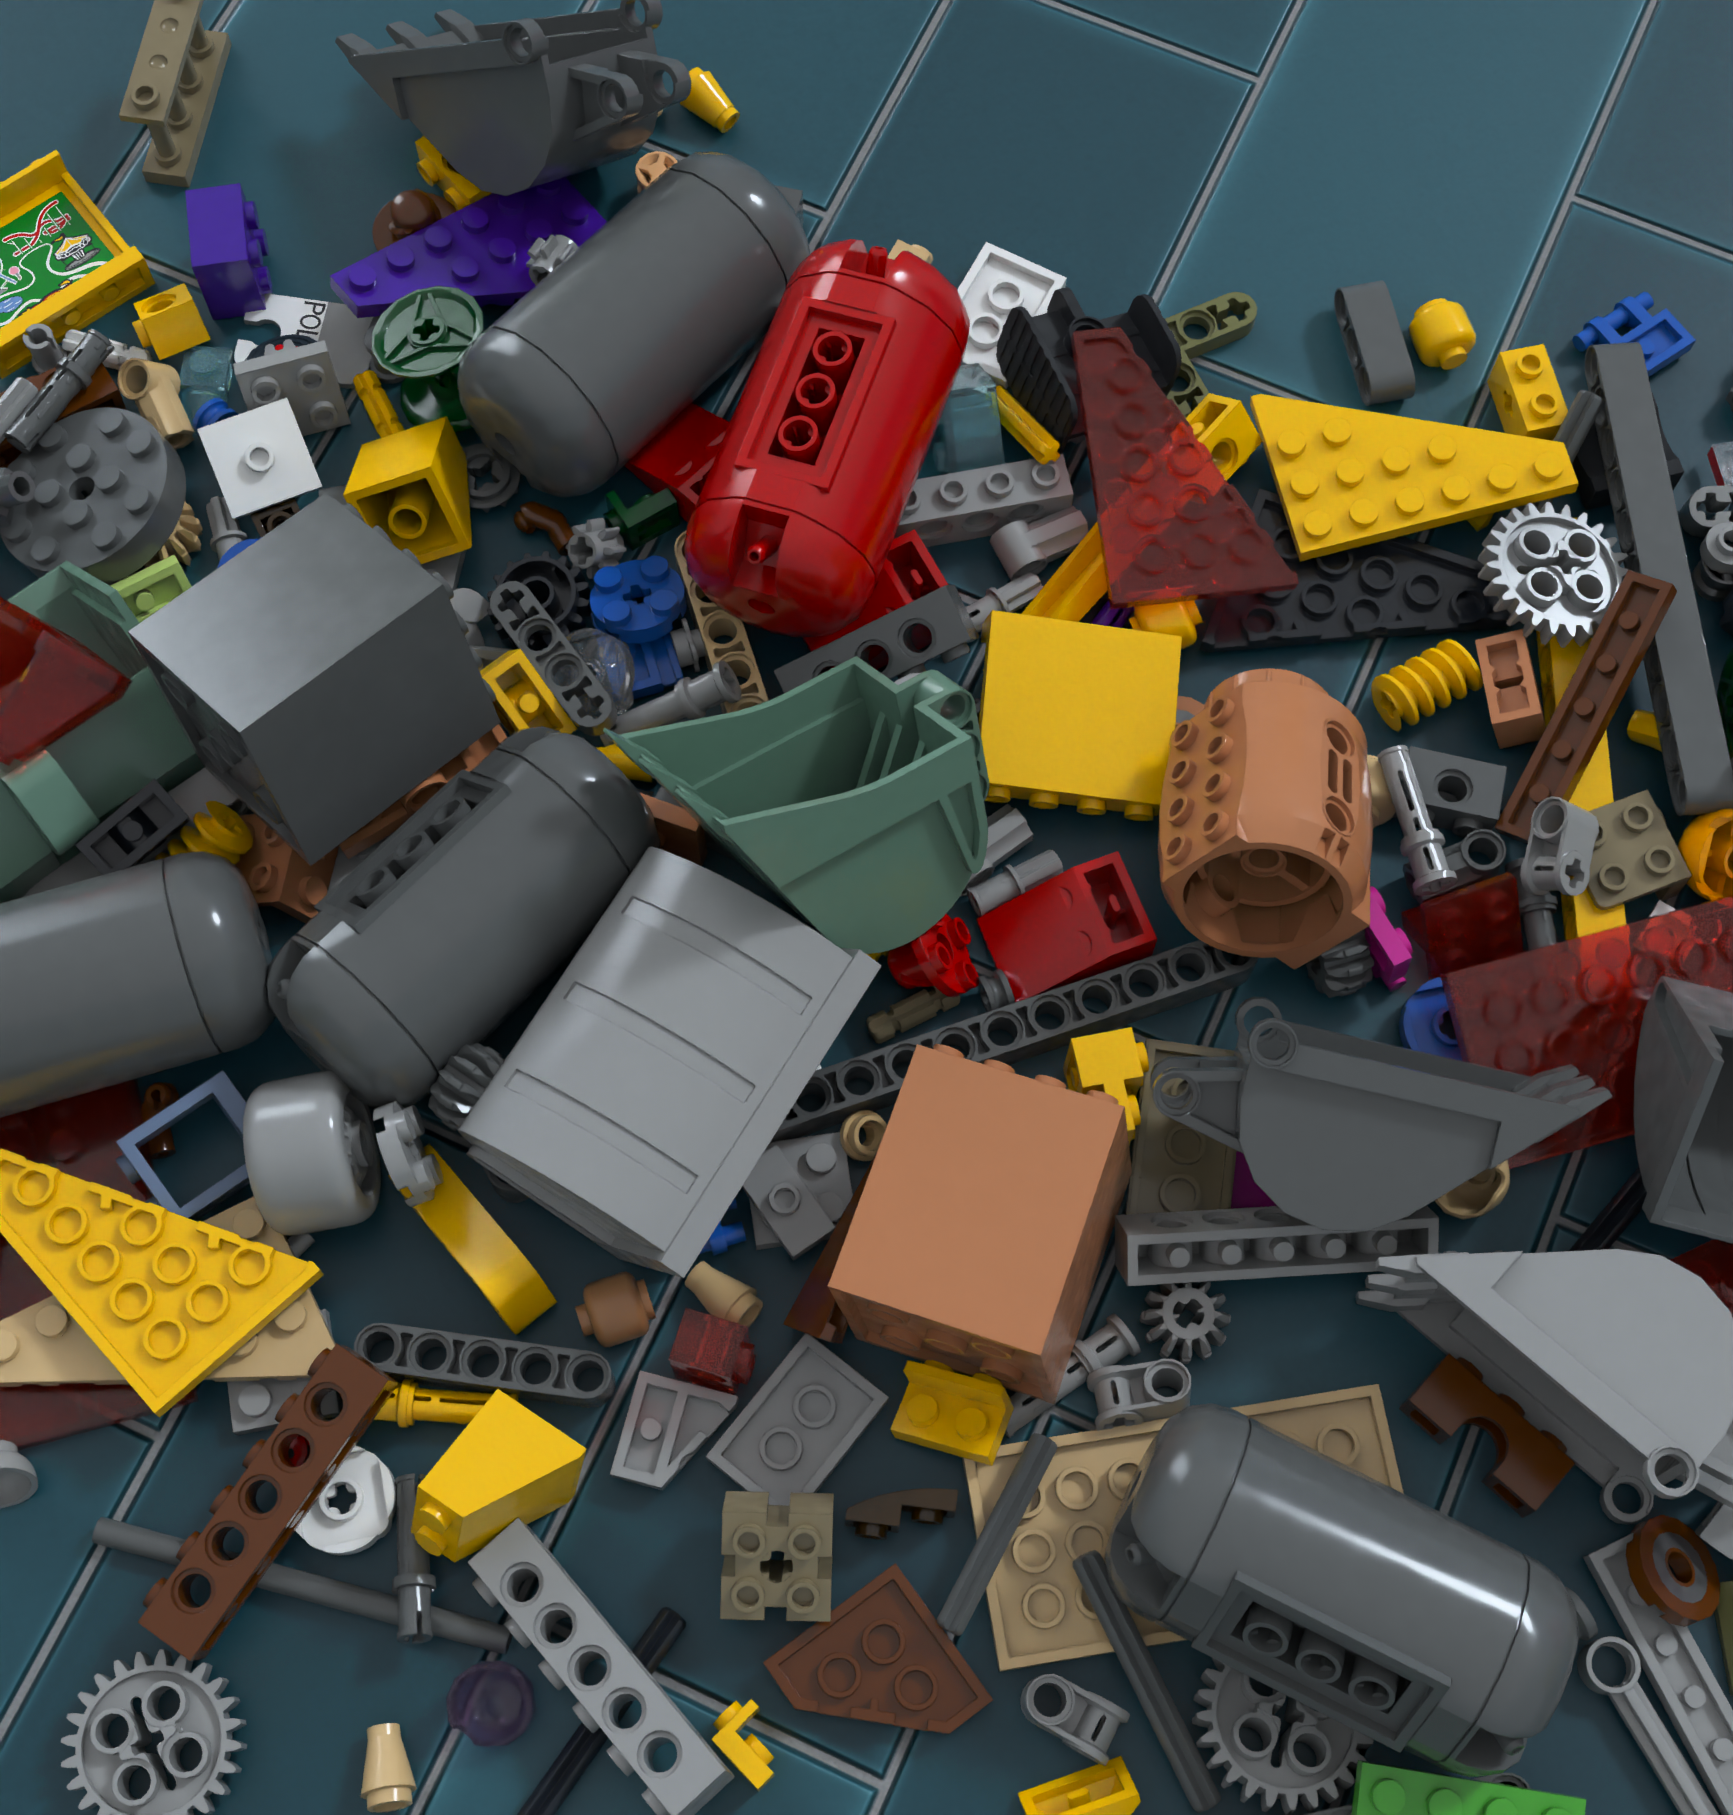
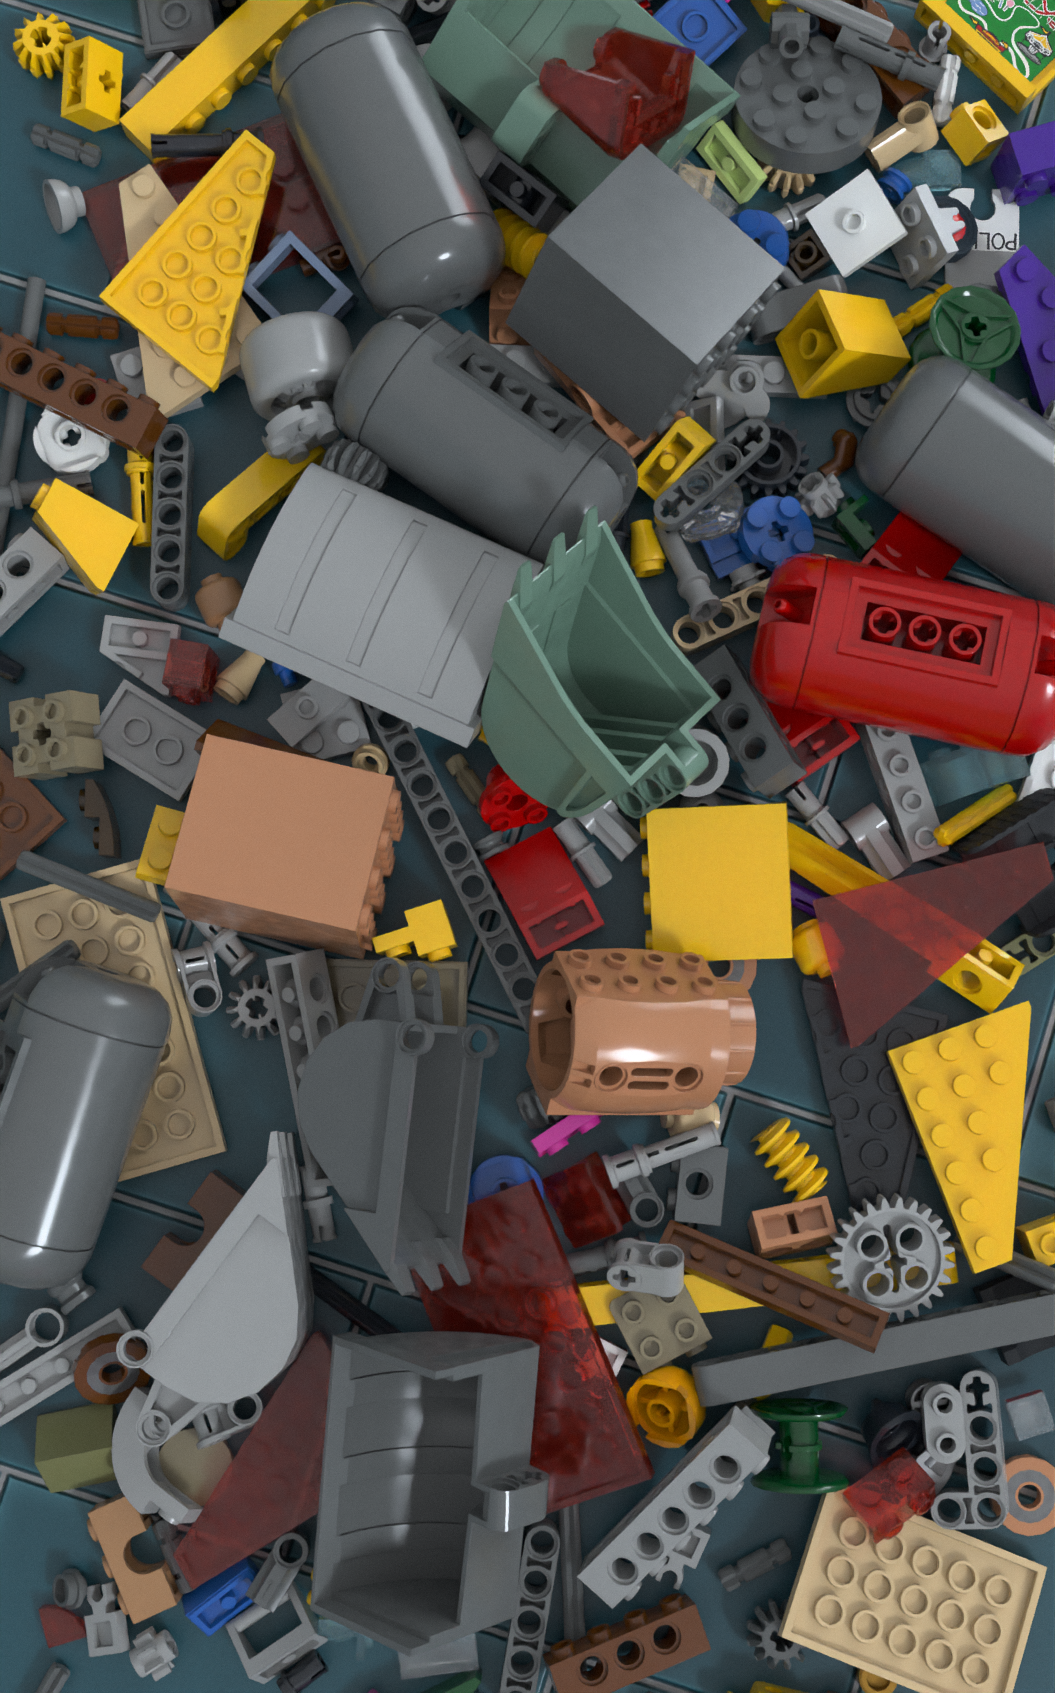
camera: 85 degrees right, 15 degrees up
(180, 1469) = (82, 325): none -> reddish brown axle

